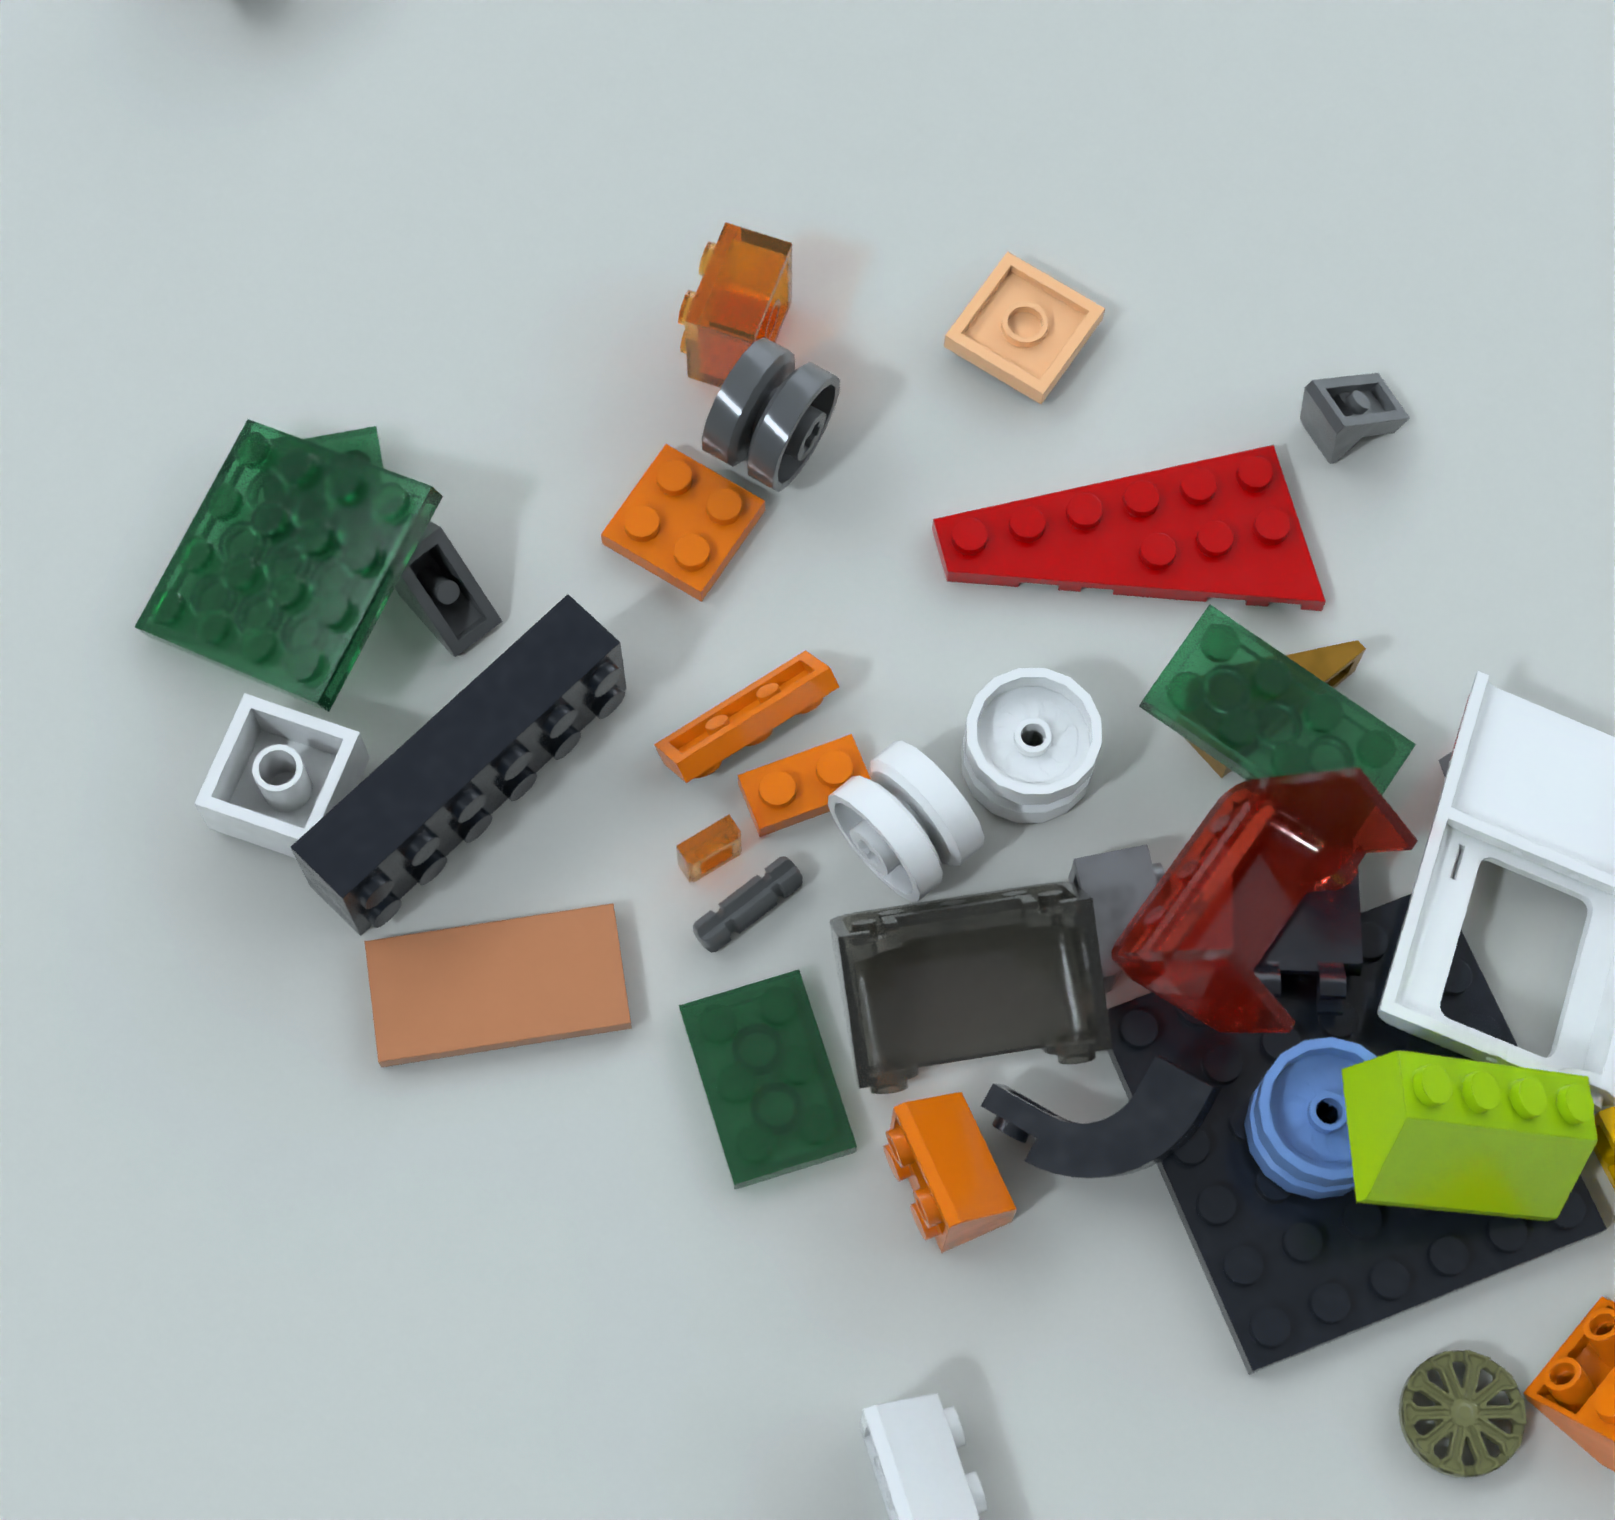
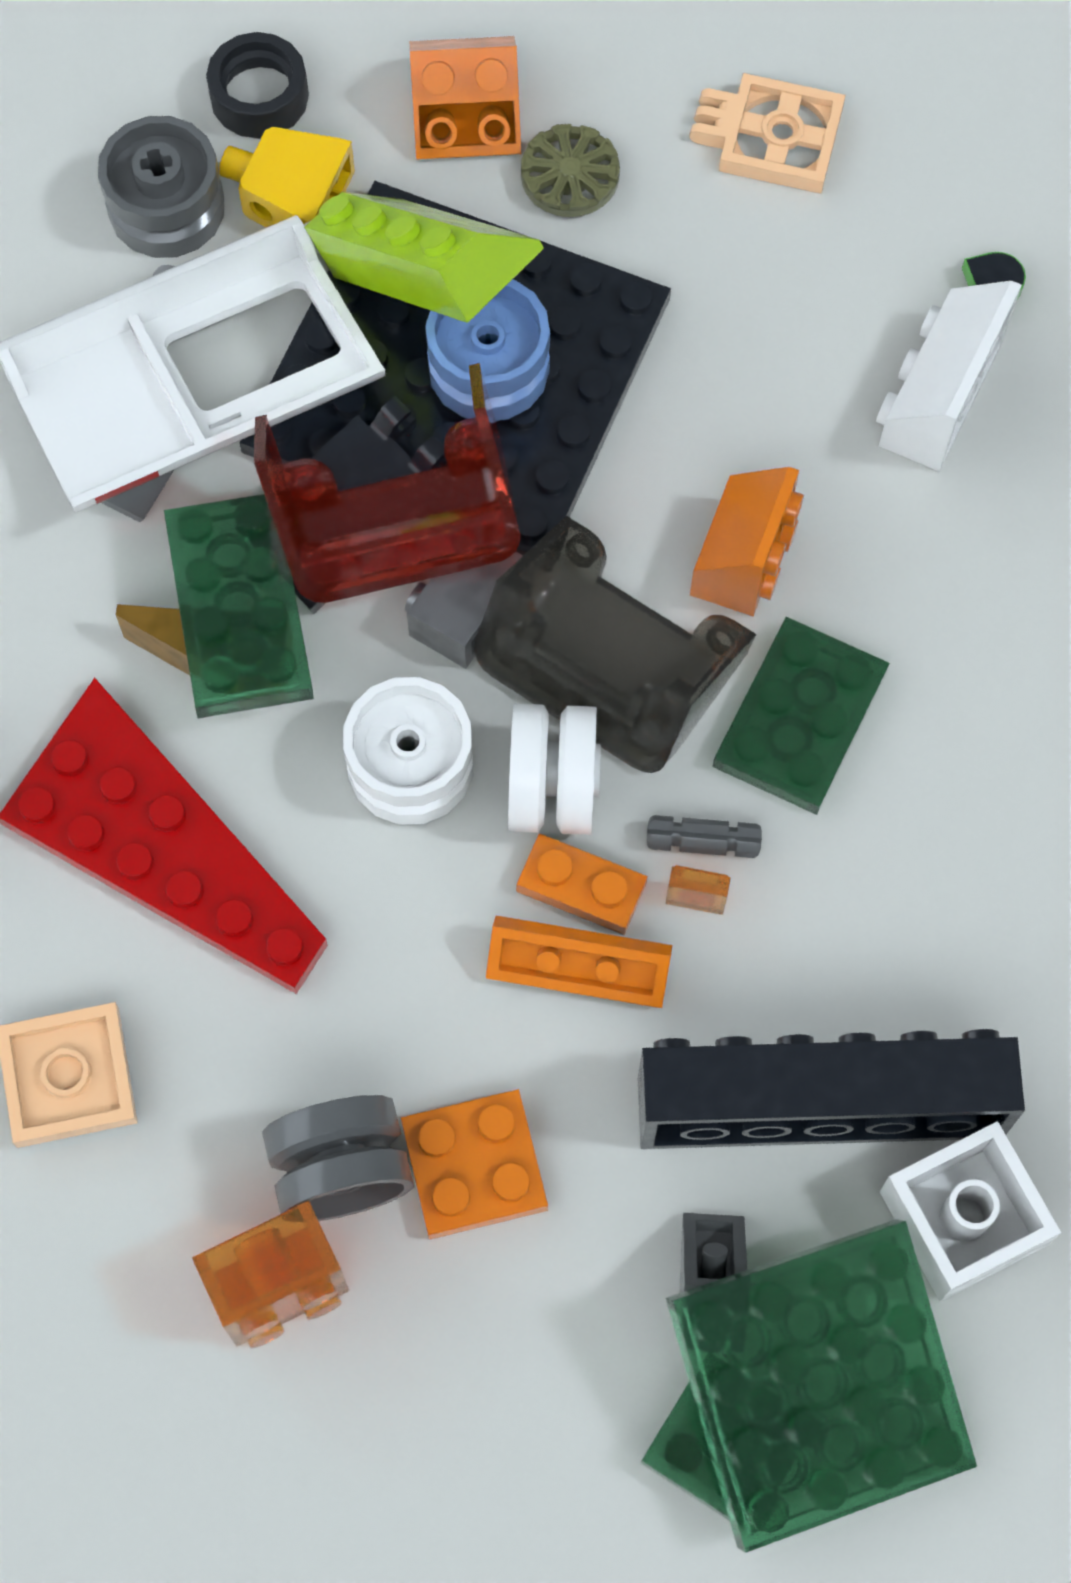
camera: 135 degrees left, 0 degrees up
(497, 985) = (929, 936): nougat tile -> none
(1144, 1132) = (626, 461): black arch -> none

